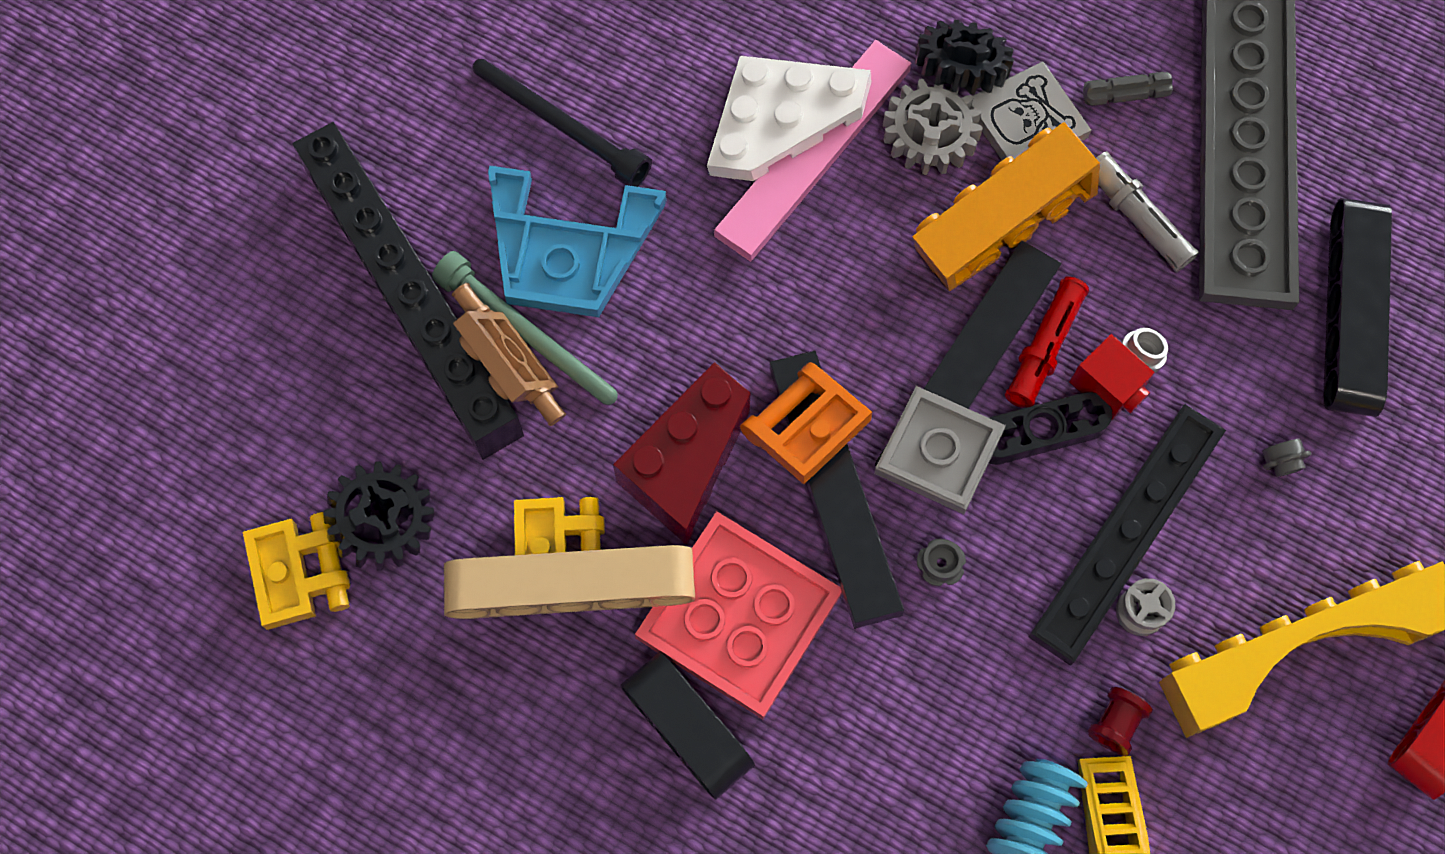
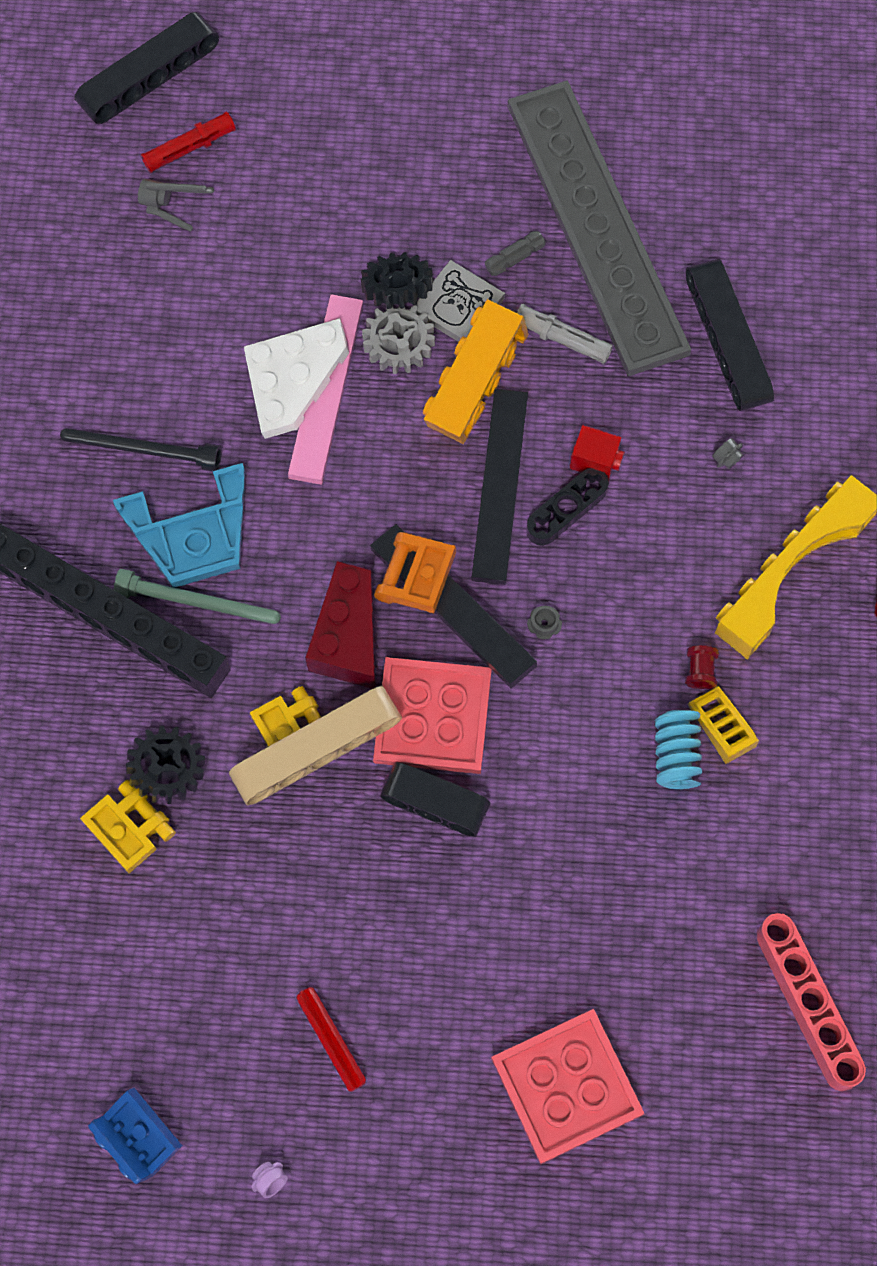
camera: 25 degrees left, 0 degrees up
(504, 353) = (209, 628): medium nougat plate -> none
(940, 450) = (509, 550): light grey tile -> none
(1039, 358) = (543, 461): red pin -> none
(1126, 535) = (652, 549): black tile -> none
(1148, 347) = (609, 422): light grey plate -> none
(1153, 599) = (687, 582): light grey wheel -> none

